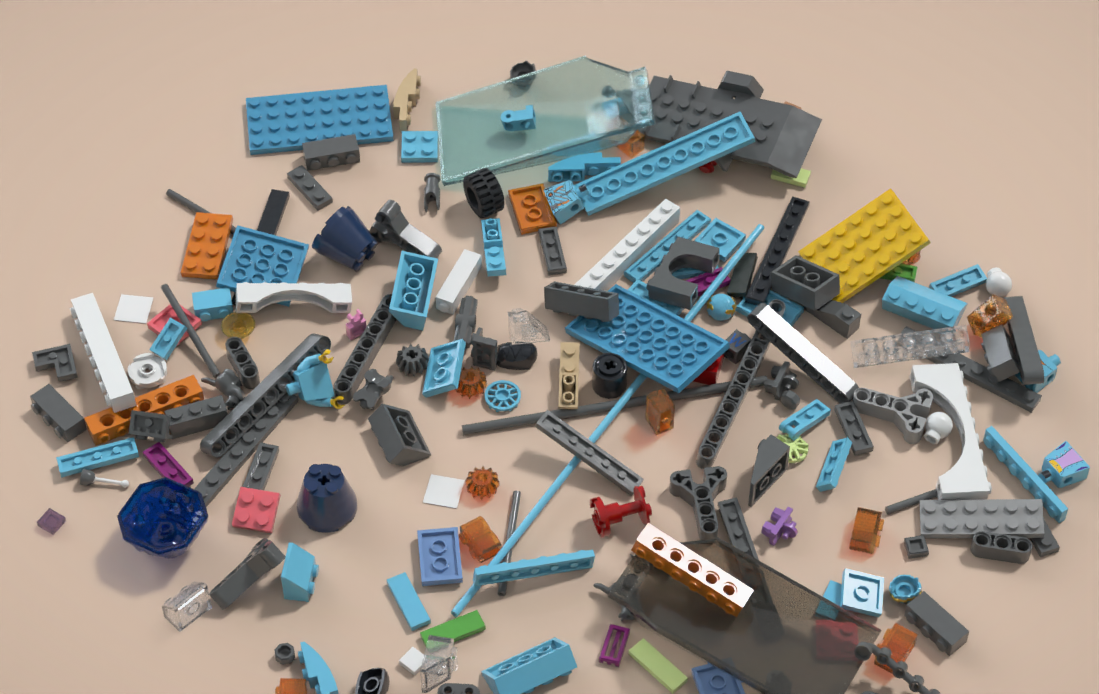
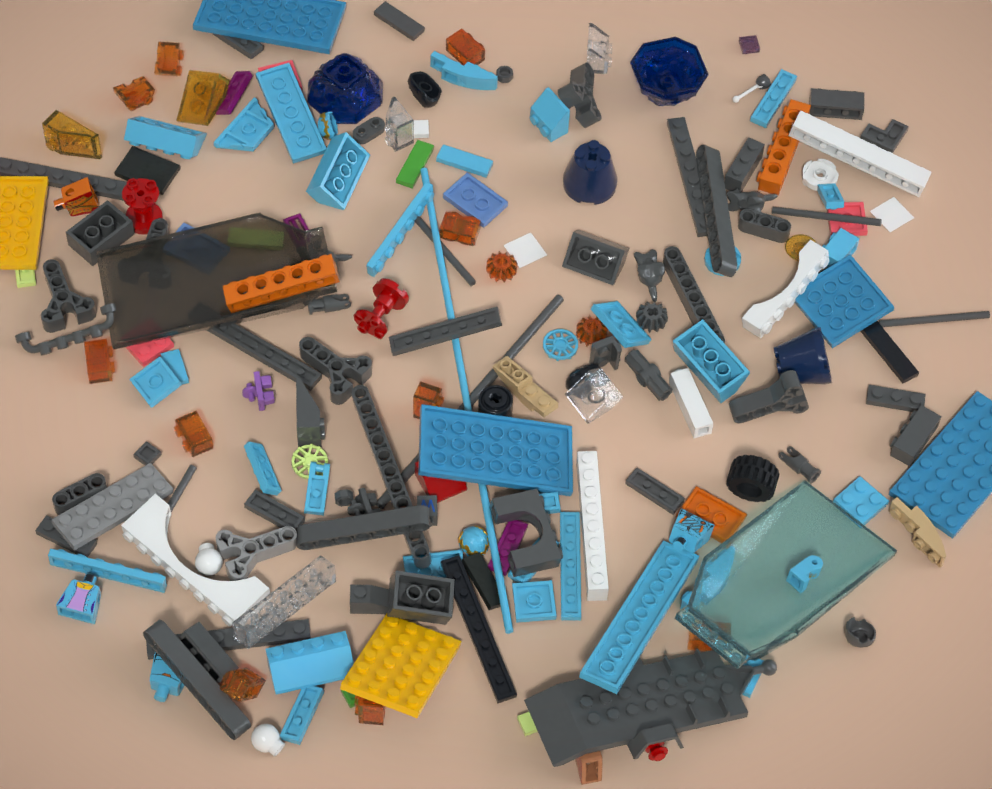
camera: 135 degrees right, 5 degrees up
(150, 425) = (761, 130): dark grey bracket -> none
(166, 464) = (721, 125): magenta plate -> none
(207, 246) = (904, 291): orange plate -> none
(256, 510) = (629, 139): coral plate -> none
(261, 466) = (660, 167): dark grey plate -> none
(314, 382) = (692, 239): medium azure torso -> none
(356, 325) = (721, 309): bright pink plate -> none
(493, 247) = (694, 450): medium azure slope -> none
(581, 301) = (575, 440): dark grey brick -> none
(904, 588) = (126, 408): medium azure hair -> none
(936, 623) = (83, 400): dark grey brick -> none

